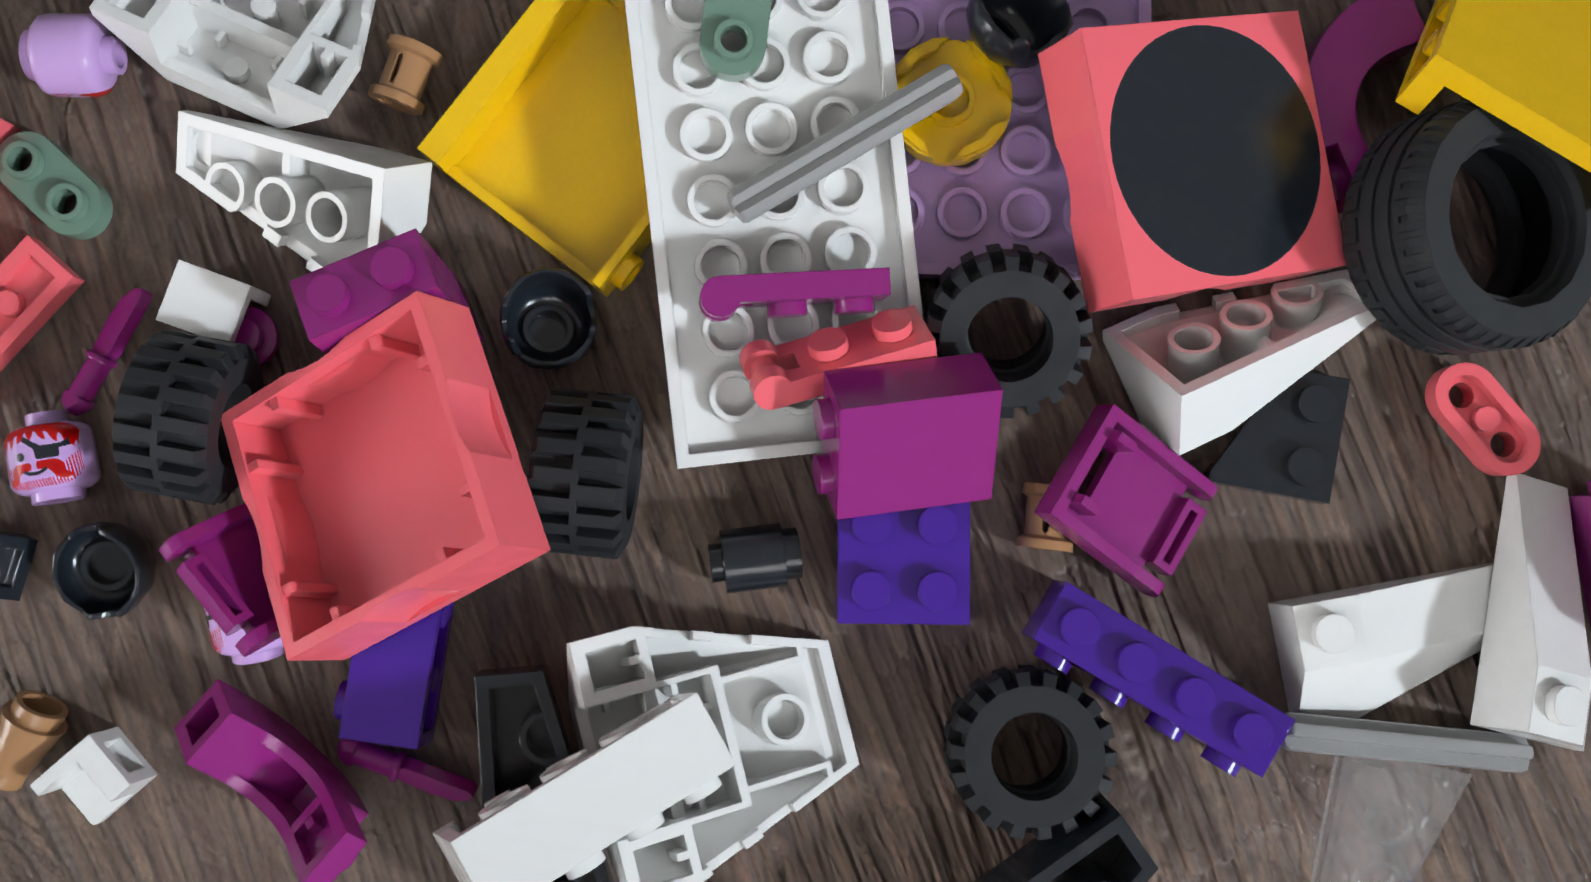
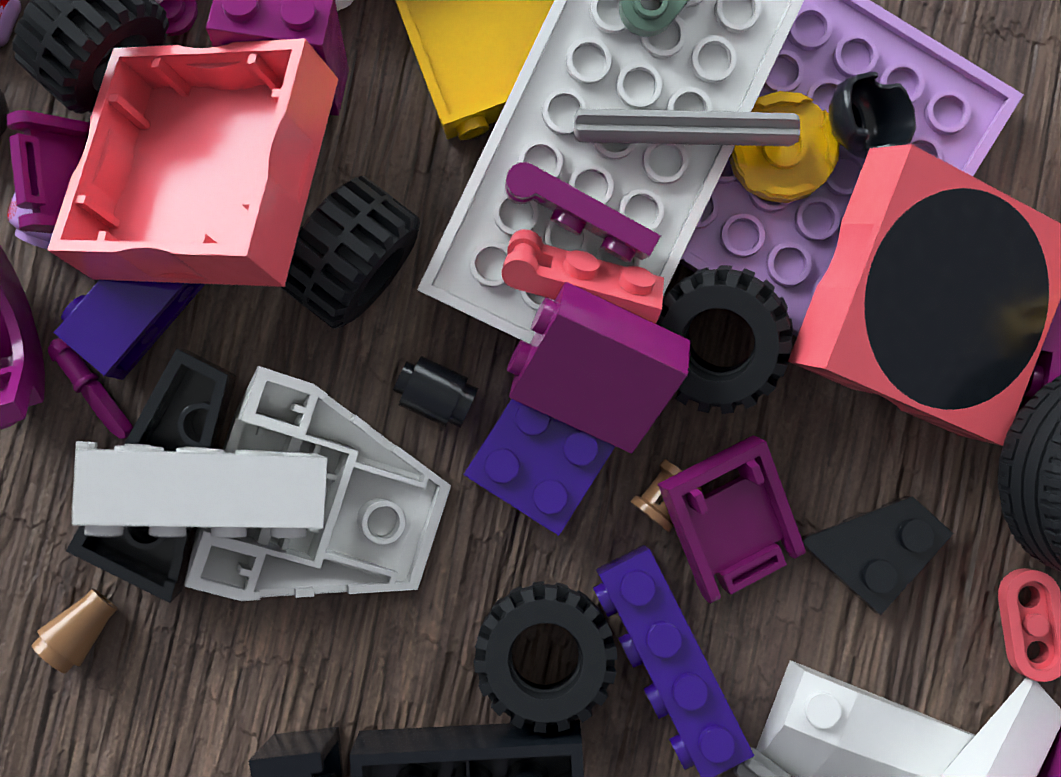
camera: 30 degrees right, 0 degrees up
(548, 318) = (393, 126): black hair -> none
(1221, 363) = (864, 463): white wedge -> none

